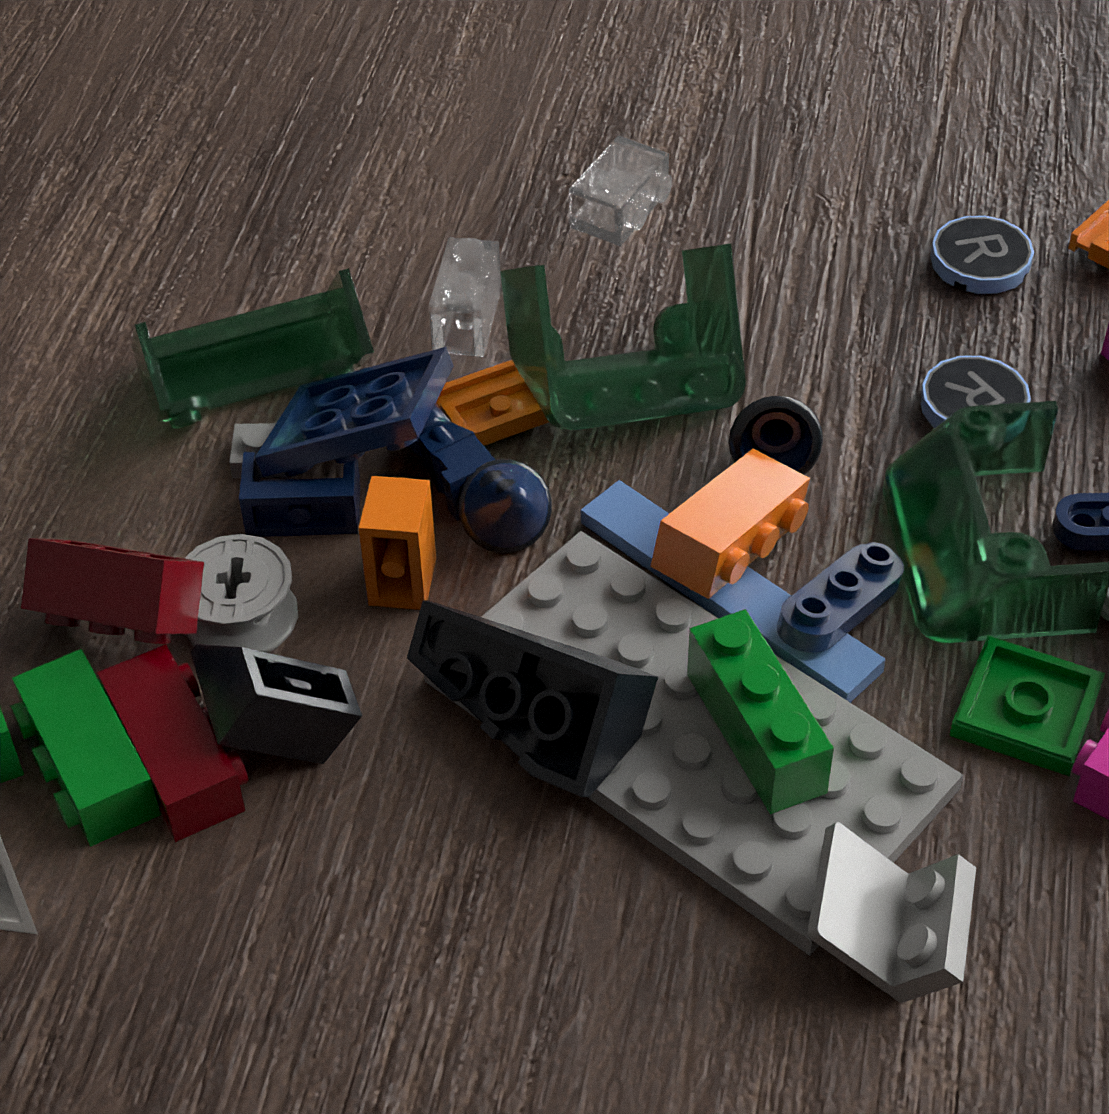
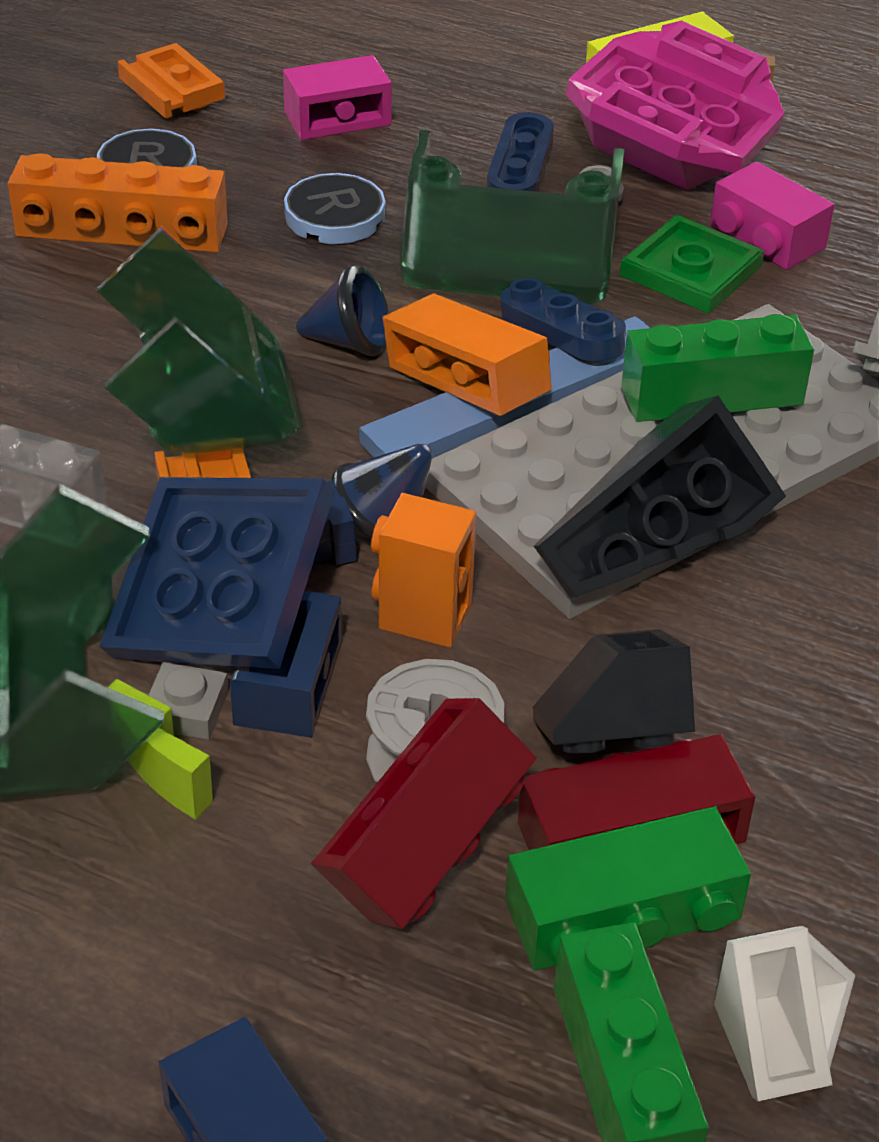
camera: 80 degrees left, 5 degrees down
(194, 432) = (169, 764): none -> lime slope
(878, 248) = (117, 201): none -> orange brick

